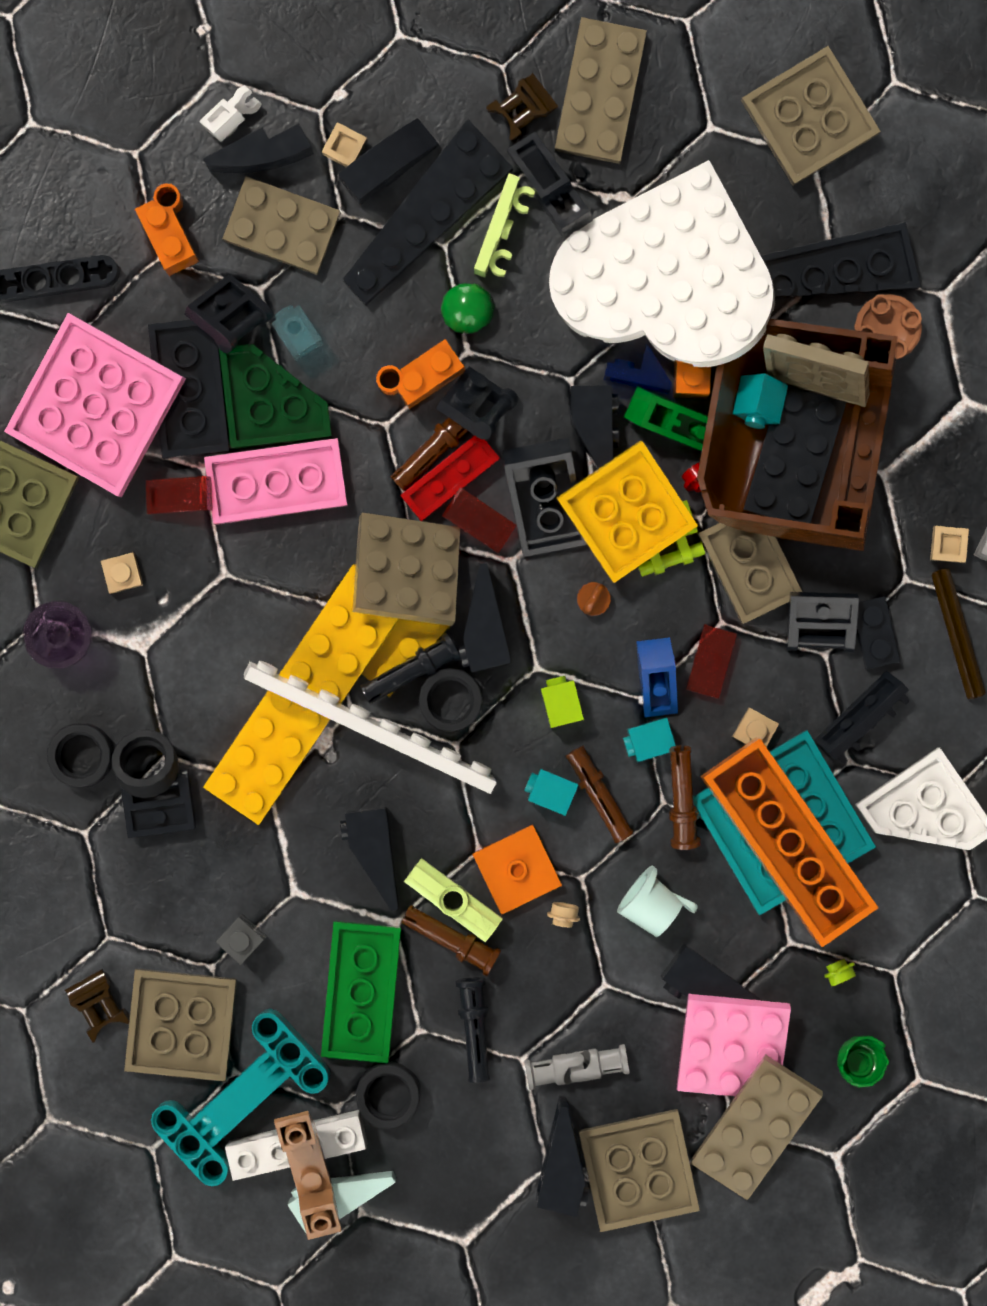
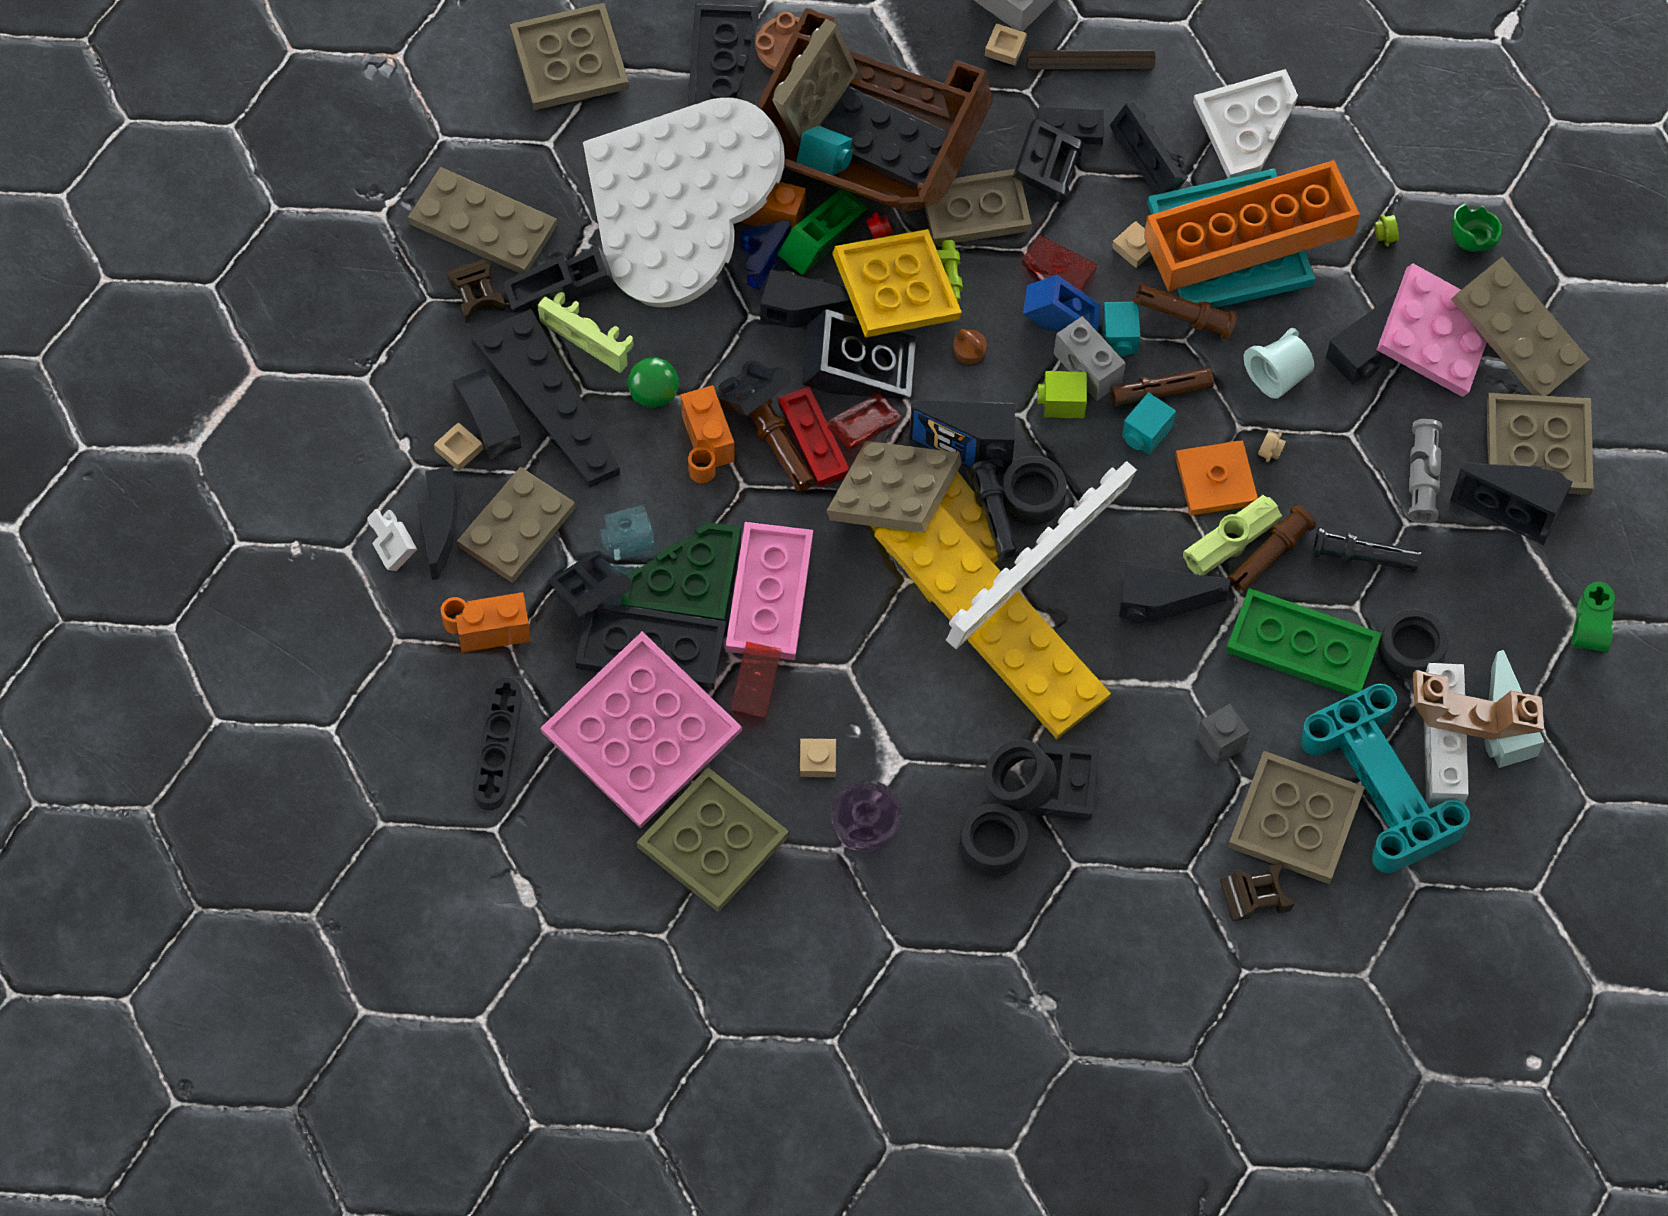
camera: 75 degrees left, 25 degrees down
(455, 1258) = (1594, 621): none -> green piece
(607, 717) = (1084, 350): none -> light grey brick

